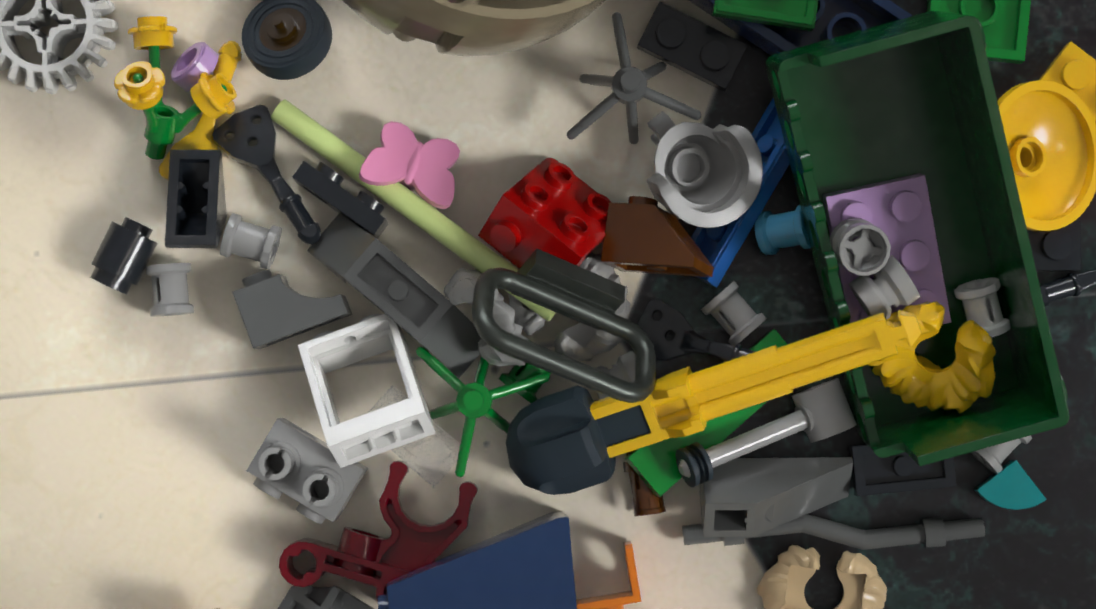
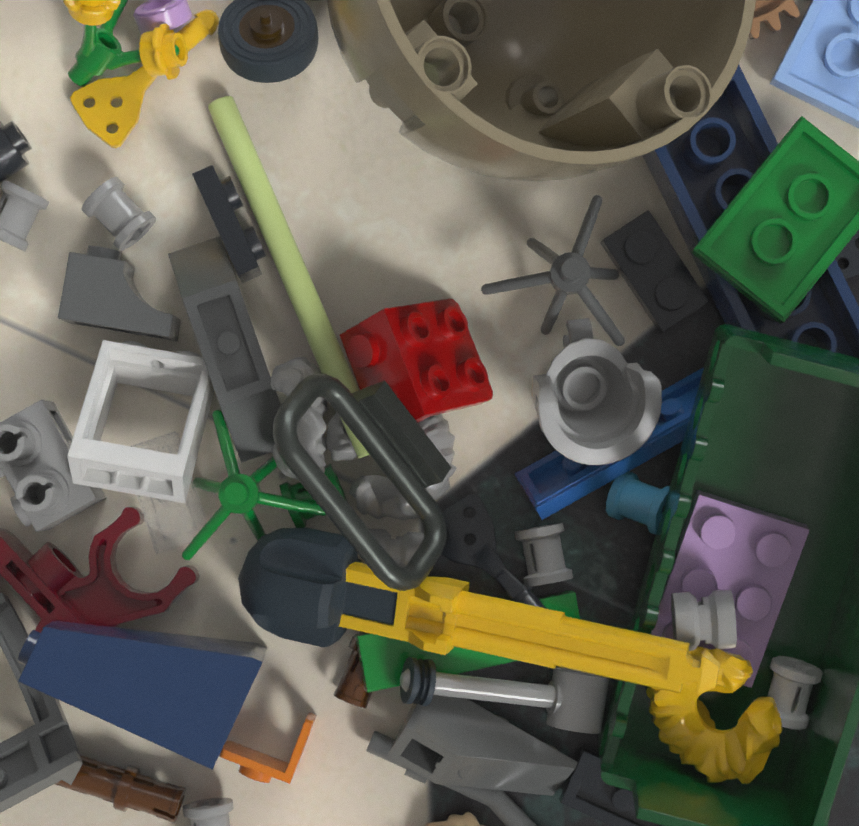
camera: 35 degrees right, 0 degrees up
(195, 199) = (86, 142): black slope -> none
(263, 159) = (176, 140): black piece -> none
(413, 164) = (317, 229): bright pink animal -> none
(650, 241) = (503, 437): reddish brown slope -> none
(869, 250) = (710, 573): light grey wheel -> none

